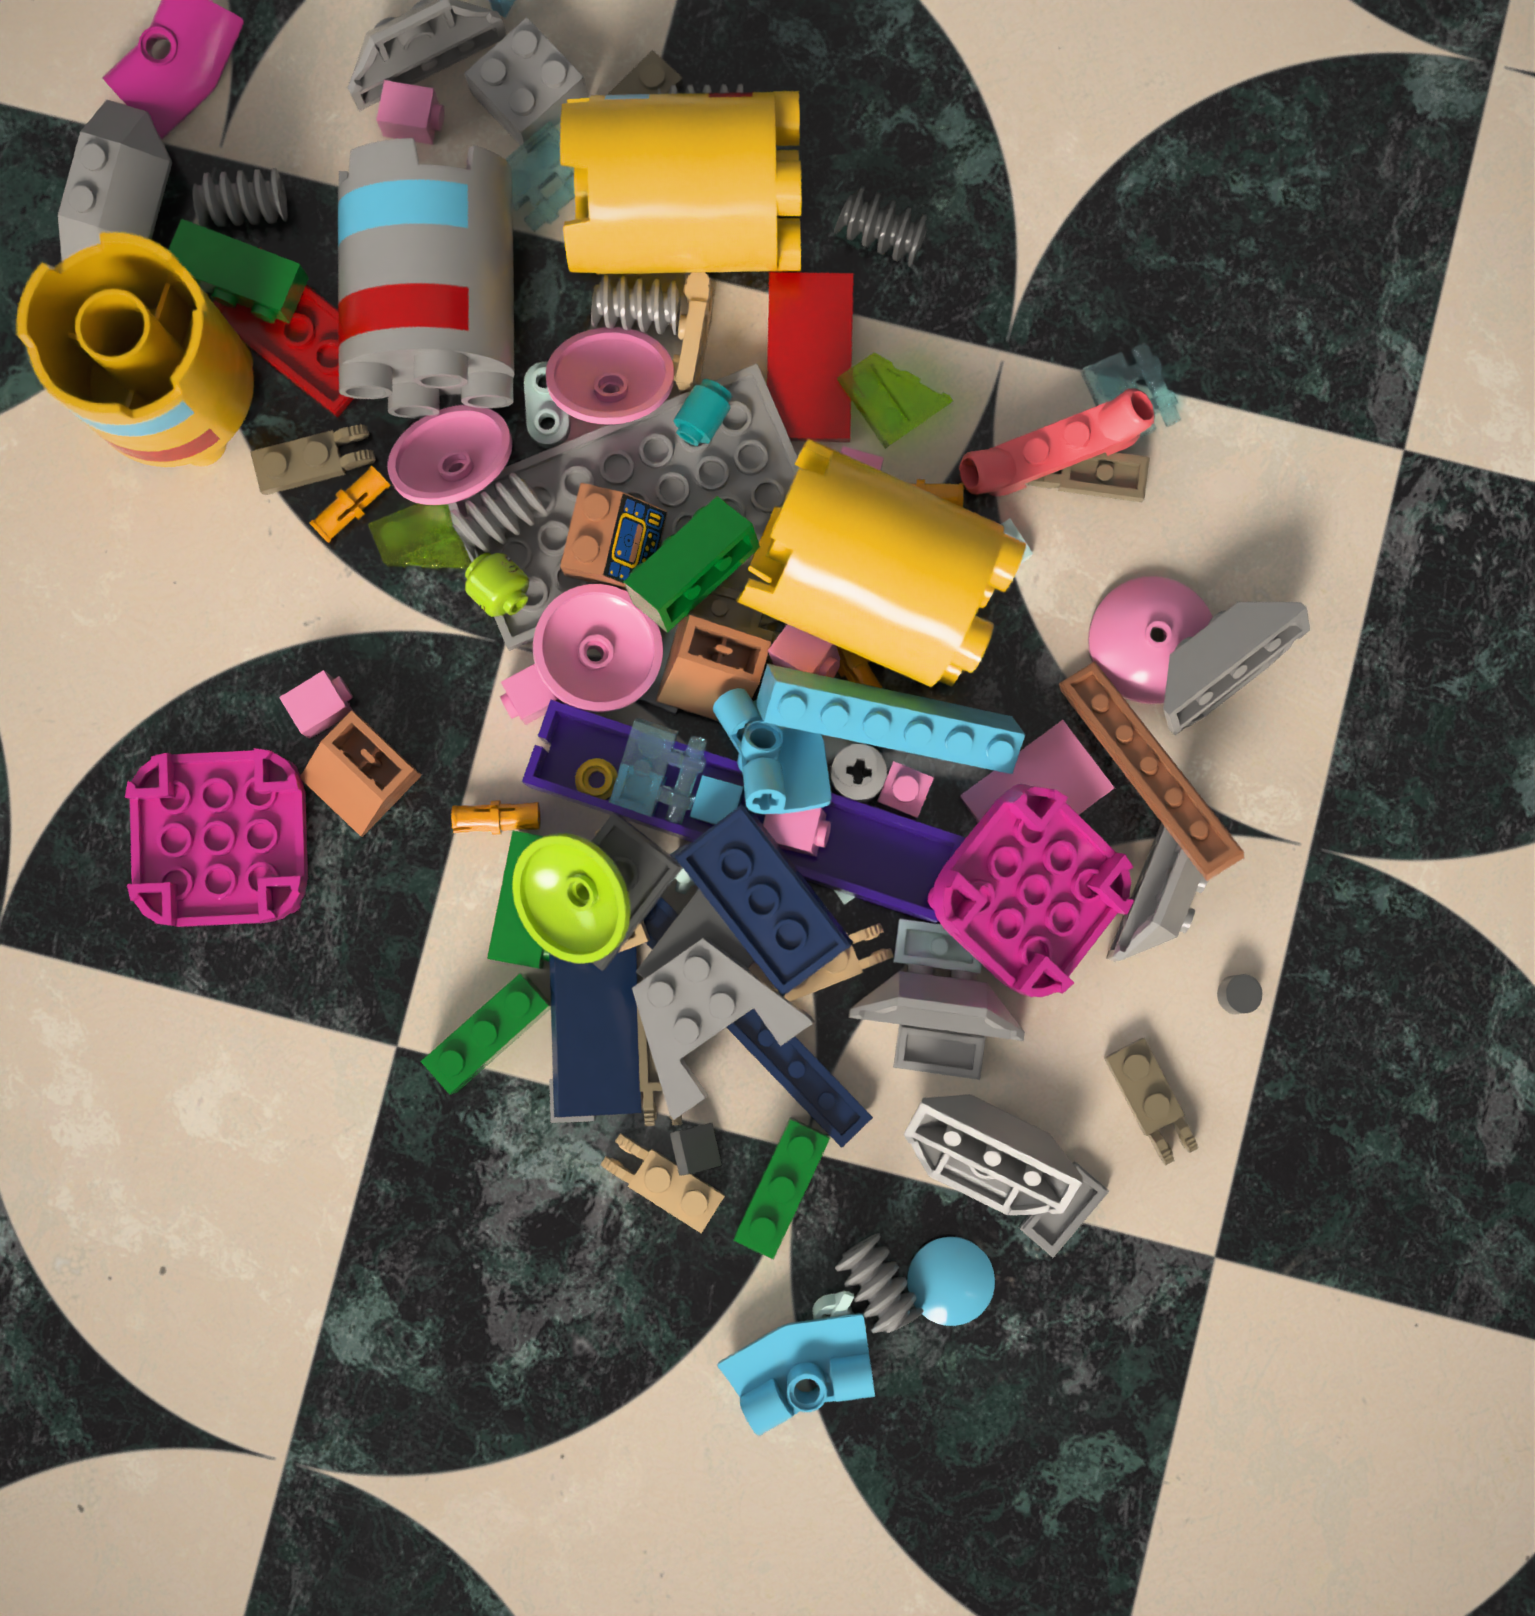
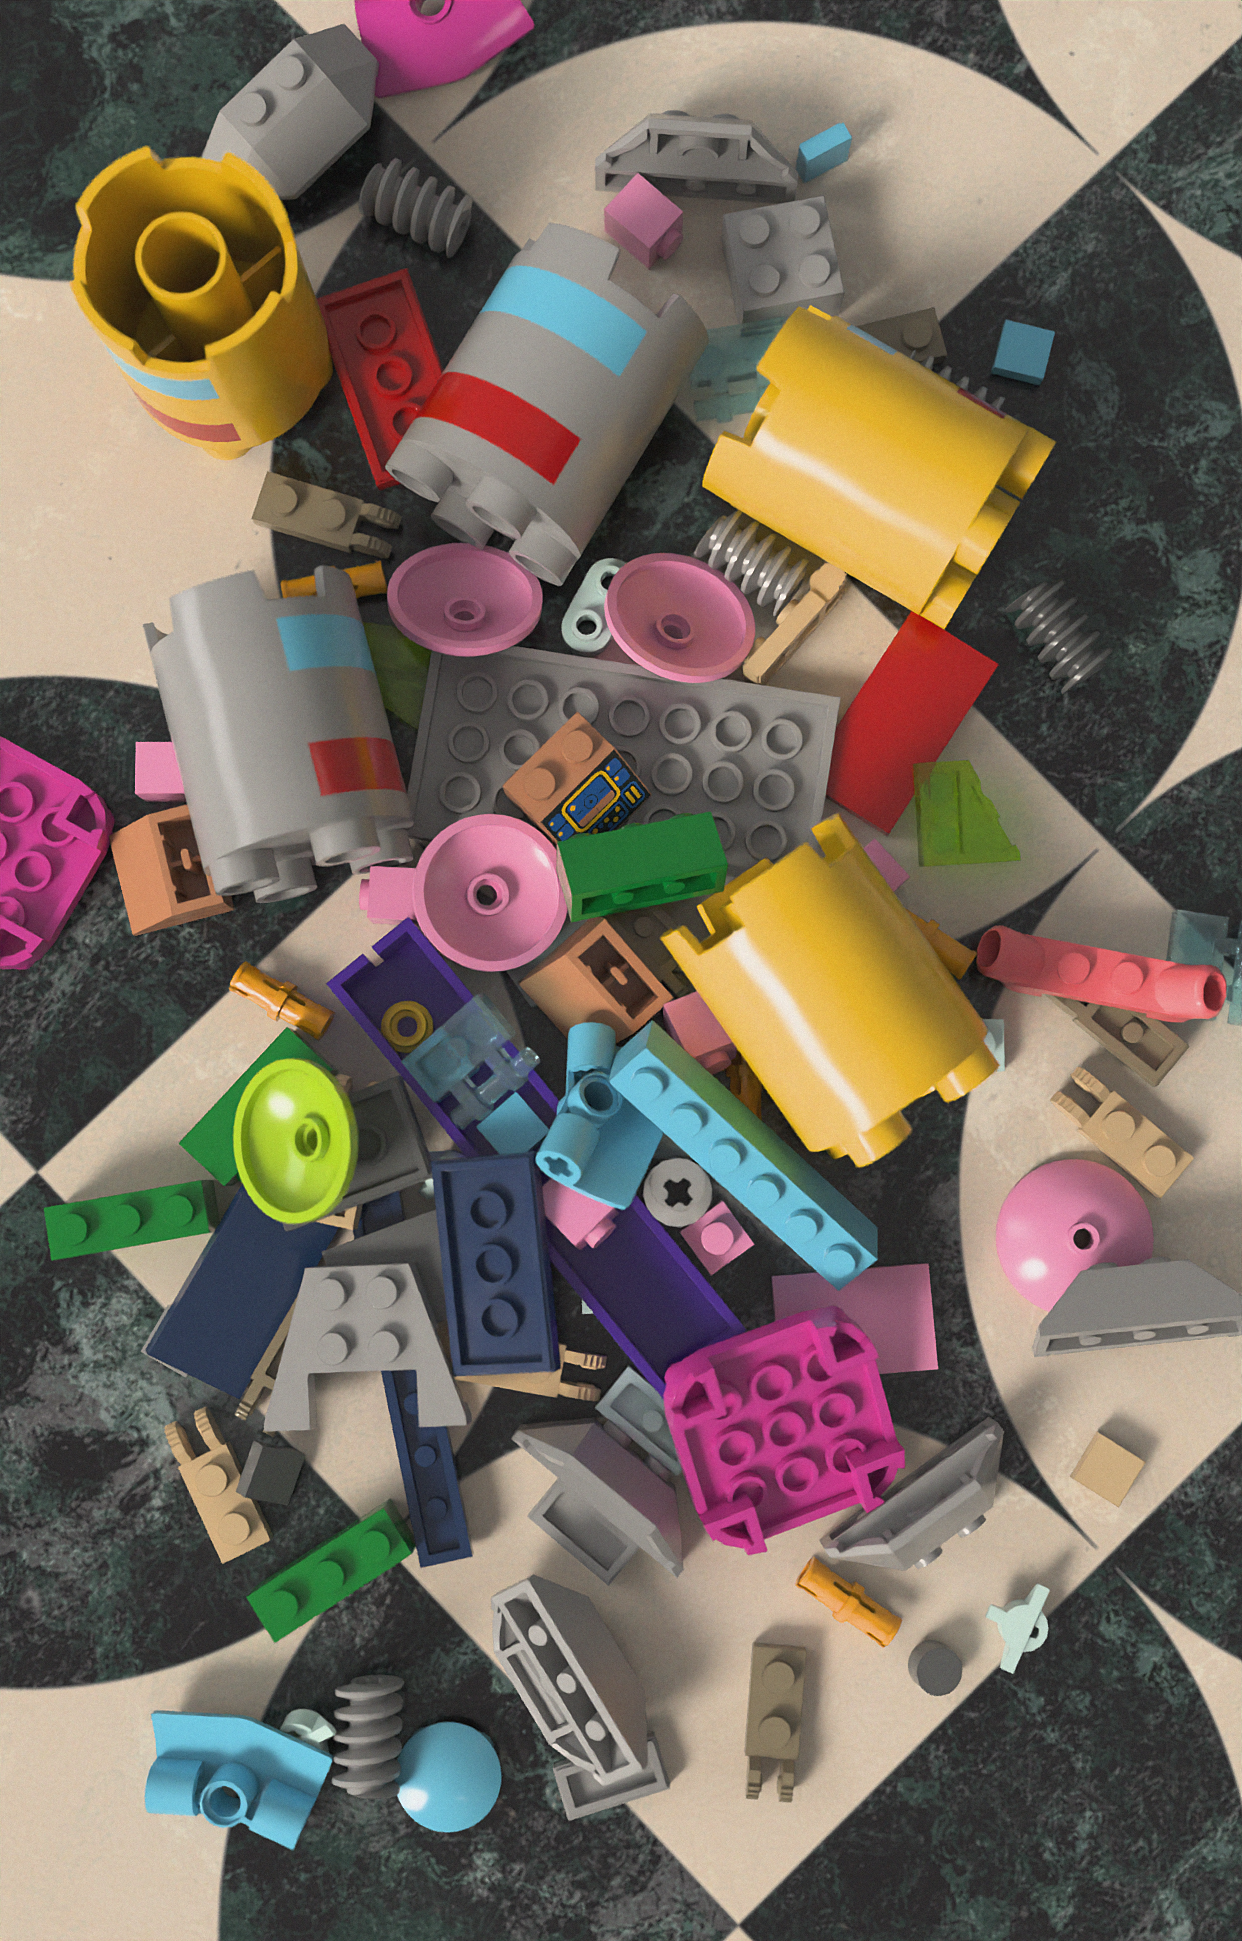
camera: 30 degrees right, 0 degrees up
(239, 272) = (363, 279): green brick -> none
(382, 625) = (280, 734): none -> light grey brick
(497, 514) = (472, 692): light grey piece -> none
(497, 584) = (430, 762): lime head -> none
(703, 412) = (751, 714): teal brick -> none
(734, 44) = (1023, 352): none -> medium azure tile
(1143, 547) = (1125, 1135): none -> tan hinge
(1152, 771) = (986, 1383): nougat tile -> none
(1152, 986) = (848, 1602): none -> light orange pin
(1273, 784) = (1107, 1469): none -> tan tile
(1276, 927) = (1016, 1623): none -> light aqua piece

